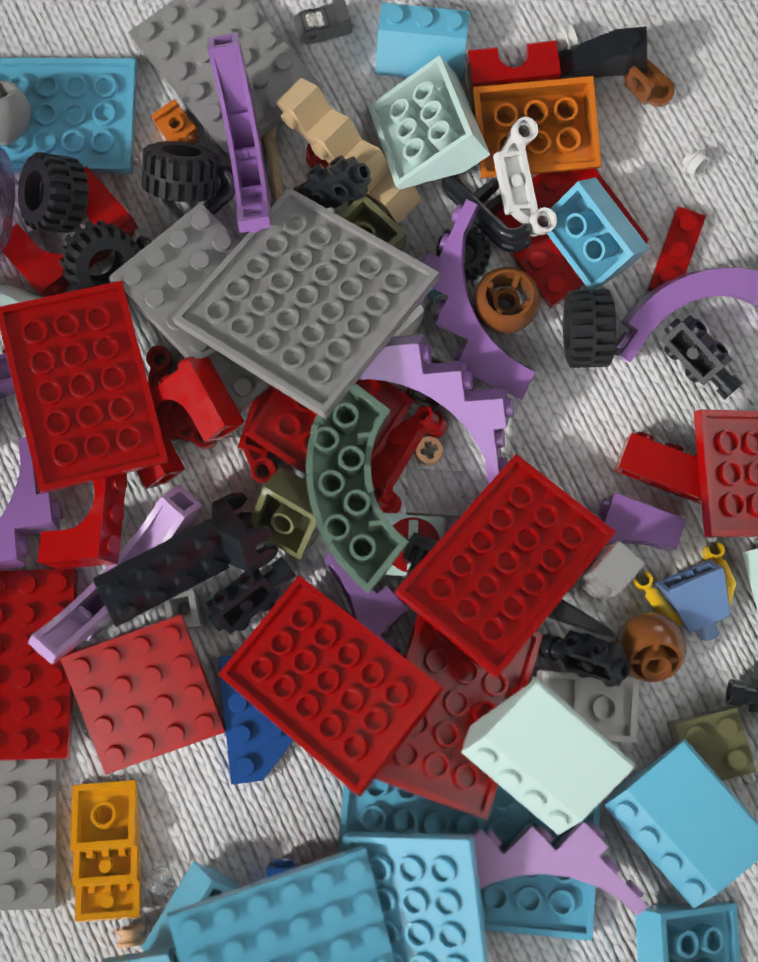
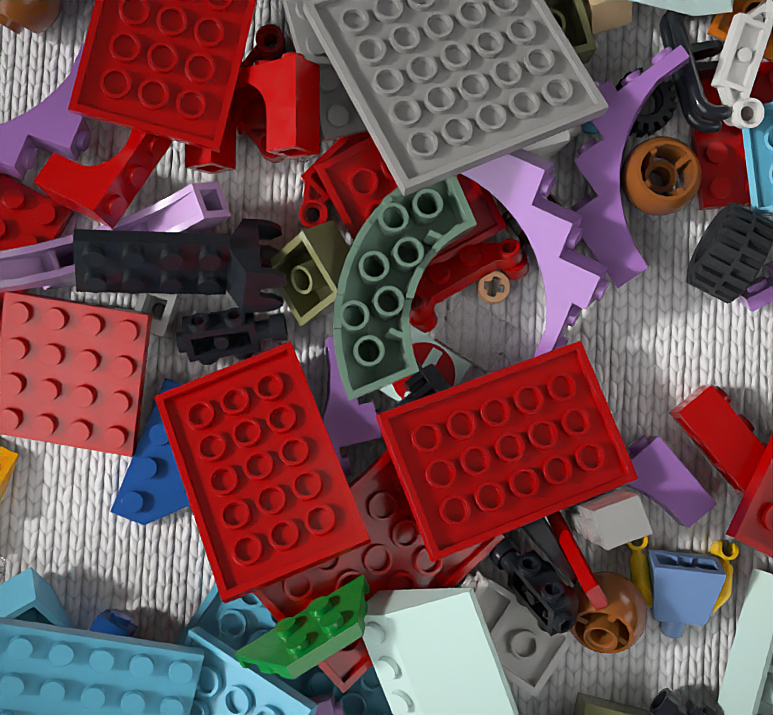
camera: 20 degrees right, 5 degrees up
(438, 783) = (312, 634): none -> green wing
(605, 618) = (577, 561): none -> red tile

